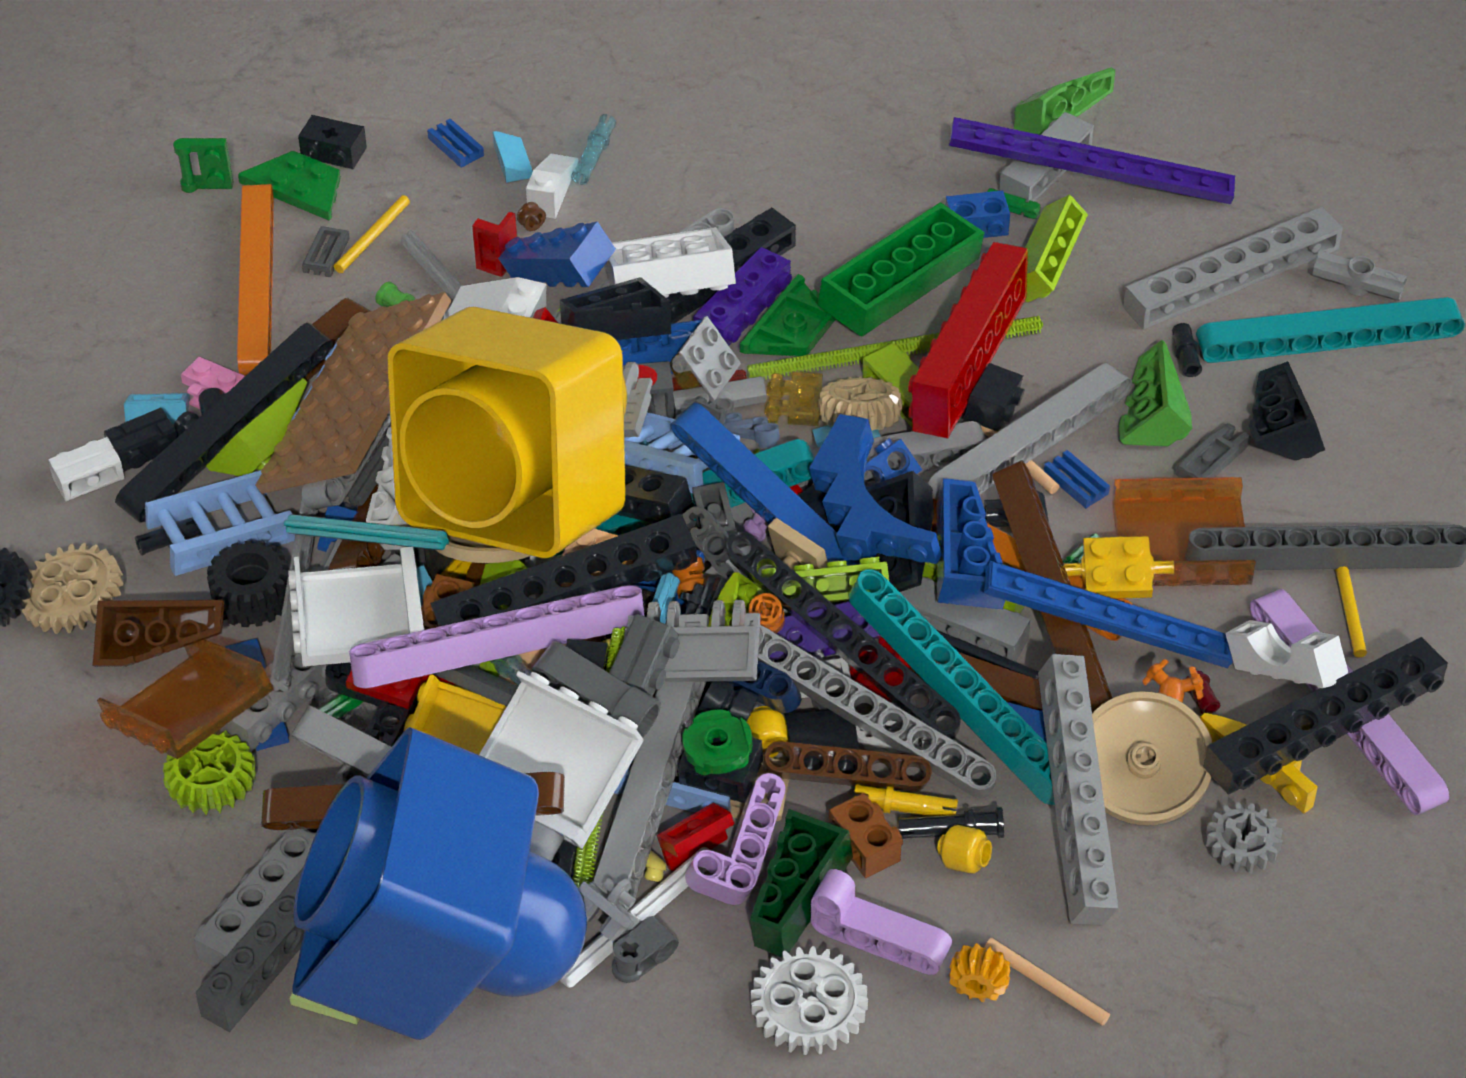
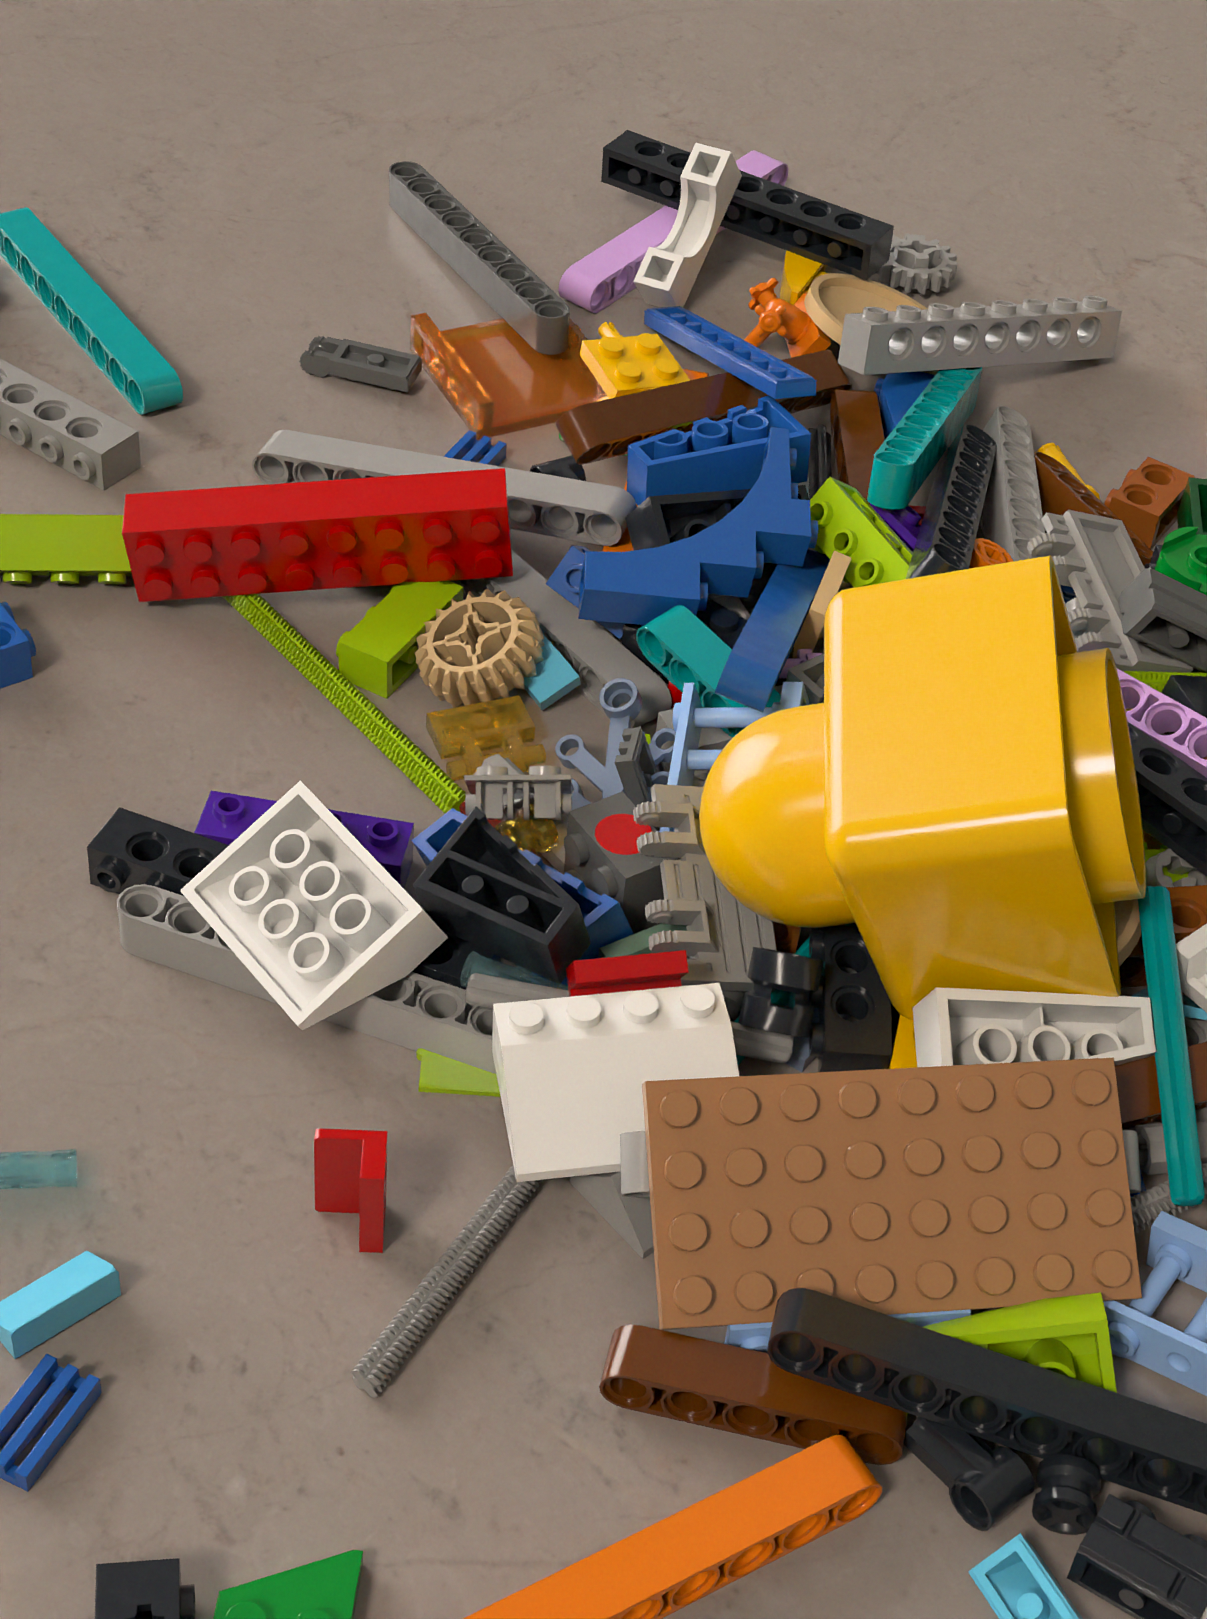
camera: 120 degrees left, 5 degrees down
(205, 375) = (920, 1540): bright pink plate -> none
(335, 255) = (467, 1525): dark grey tile -> none
(371, 234) = (377, 1453): yellow bar -> none
(389, 295) = (554, 1318): bright green bush -> none
(531, 216) = (225, 1195): reddish brown bush -> none
(550, 183) = (113, 1198): white slope -> none
(559, 255) = (393, 1025): blue wedge -> none
(790, 325) = (338, 771): green wing -> none
(900, 269) = (175, 664): green brick -> none
(935, 826) = (1064, 433): black pin -> none
(964, 849) = (1100, 428): yellow head -> none
(1050, 983) = (1191, 363): light nougat bar -> none
(1158, 405) = (317, 402): bright green wedge -> none
(1187, 350) = (178, 410): black pin -> none
(1208, 702) = (738, 319): dark red pin -> none
(1283, 417) = (264, 311): black wedge -> none
(1351, 612) = (557, 245): yellow bar -> none

